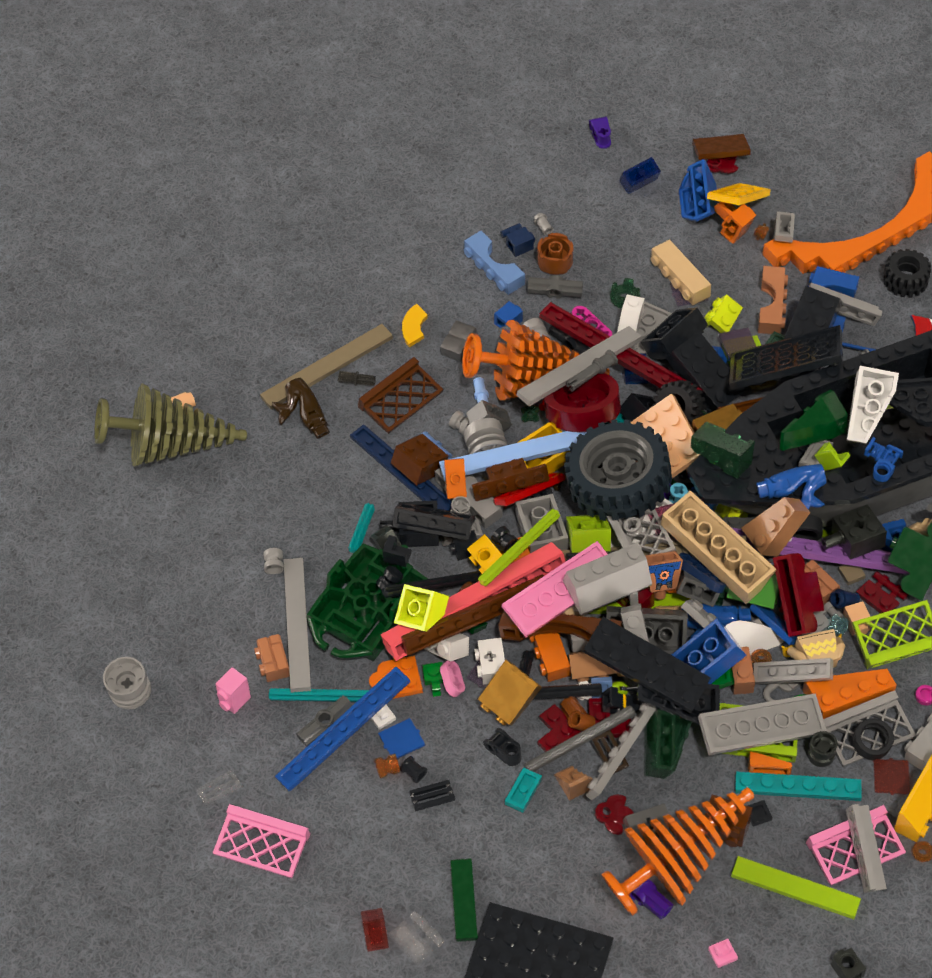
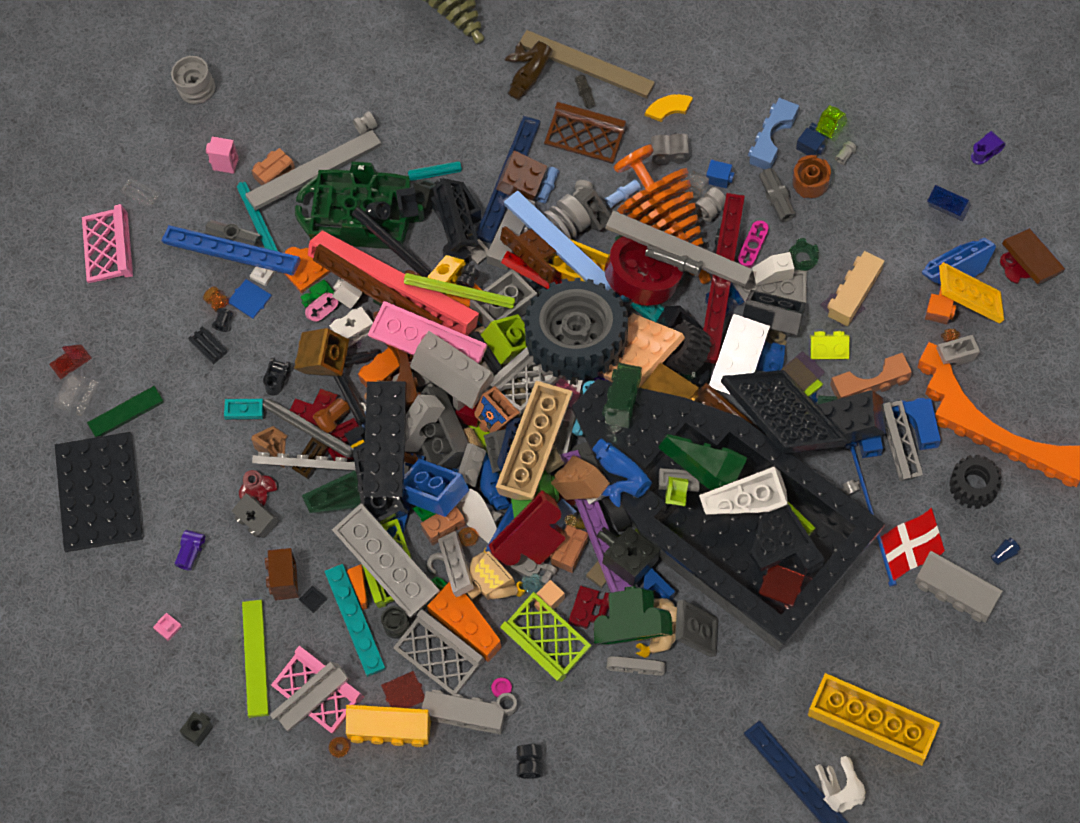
camera: 65 degrees right, 10 degrees up
(420, 608) = (355, 244): neon yellow slope -> none
(455, 478) = (506, 210): orange plate -> none
(461, 505) = (485, 228): light grey wheel -> none
(512, 215) = (831, 121): none -> clear neon green slope
(632, 522) = (524, 364): light grey bush -> none
(677, 849) = (215, 539): orange plant -> none
(842, 598) = (563, 577): dark blue cone -> none
(879, 725) = (410, 659): black tyre -> none
(884, 457) = (697, 534): blue piece -> none

